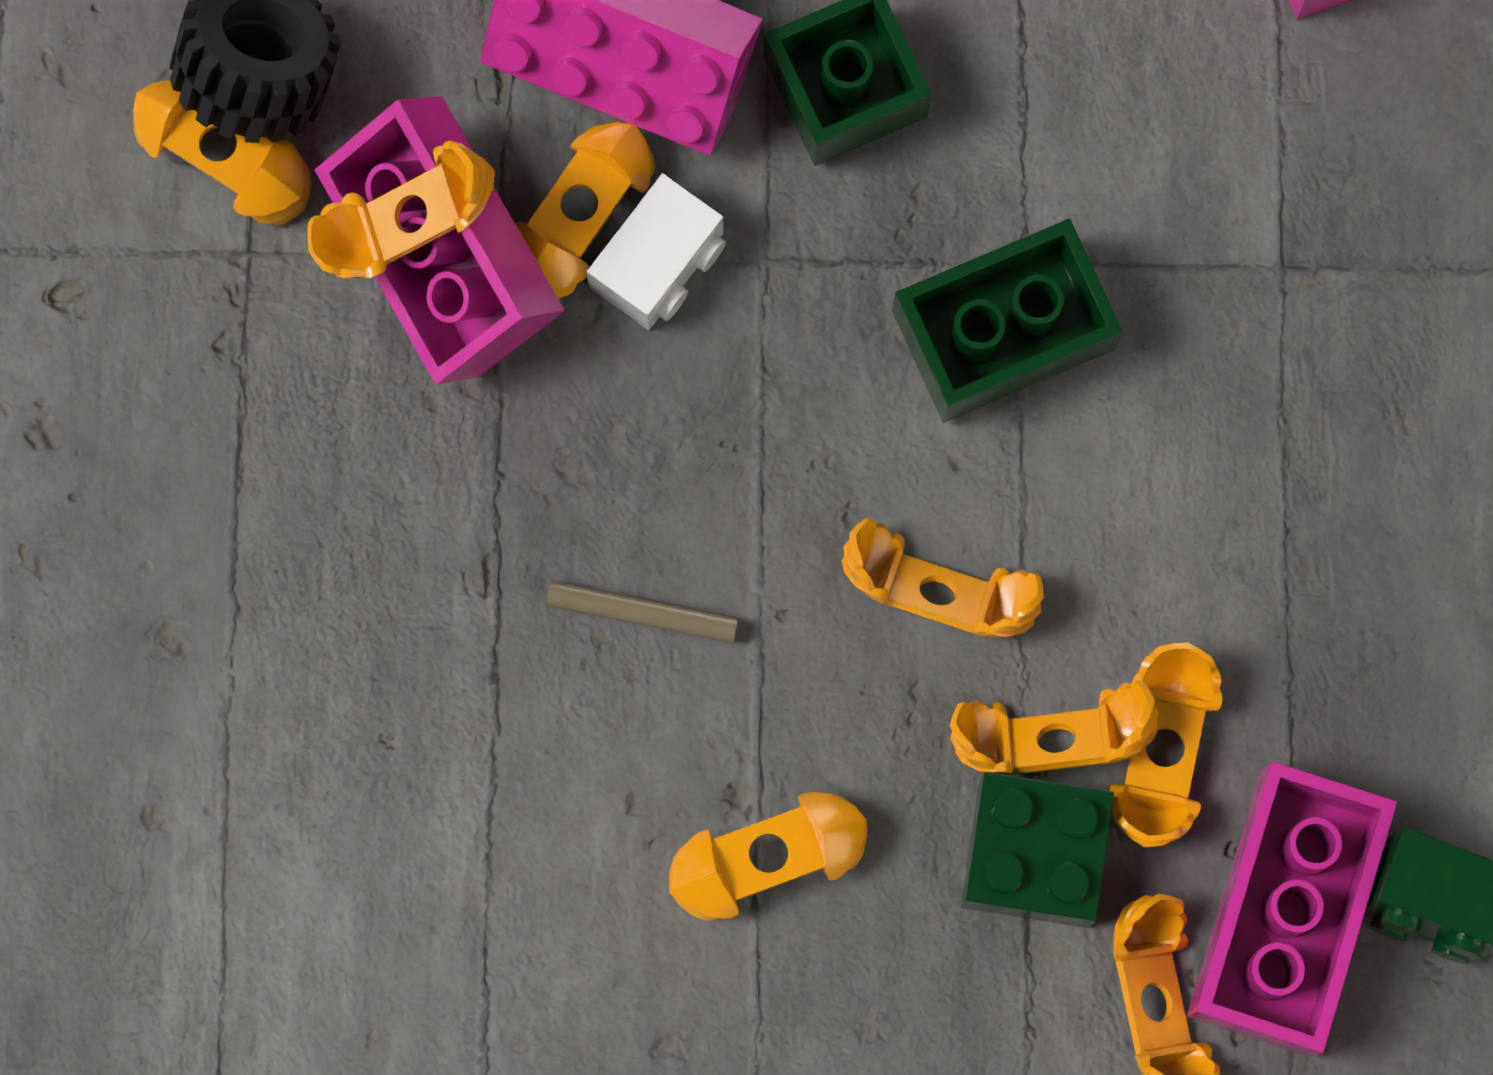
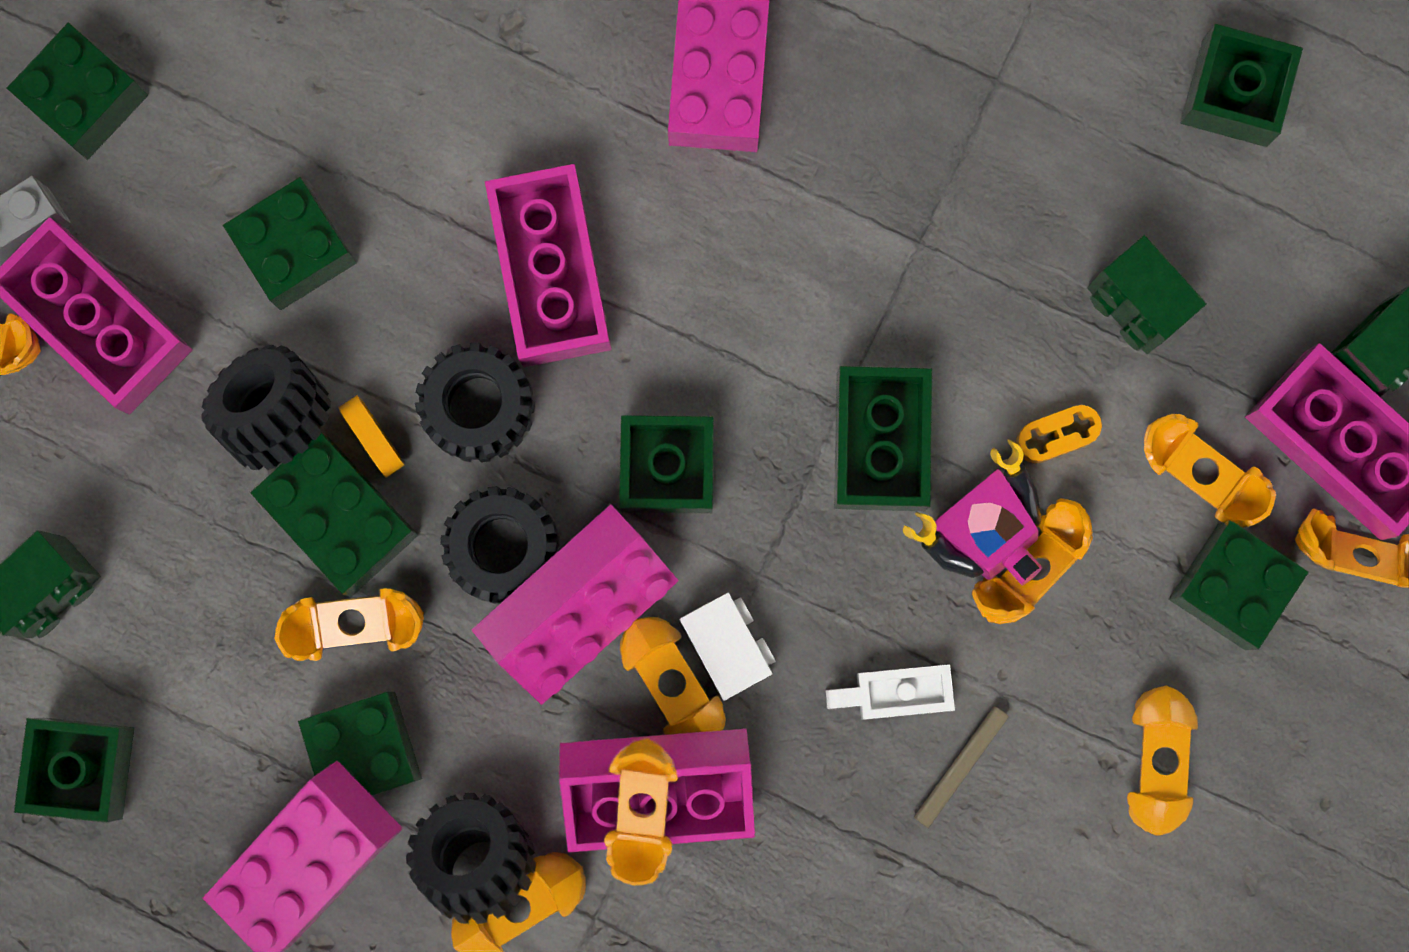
camera: 60 degrees left, 5 degrees up
(697, 487) = (897, 692): none -> white plate
(960, 501) = (988, 525): none -> torso
(1006, 746) = (1182, 504): light orange piece -> none
(1133, 533) = (1054, 424): none -> light orange beam
(1350, 561) = (1145, 296): none -> dark green brick

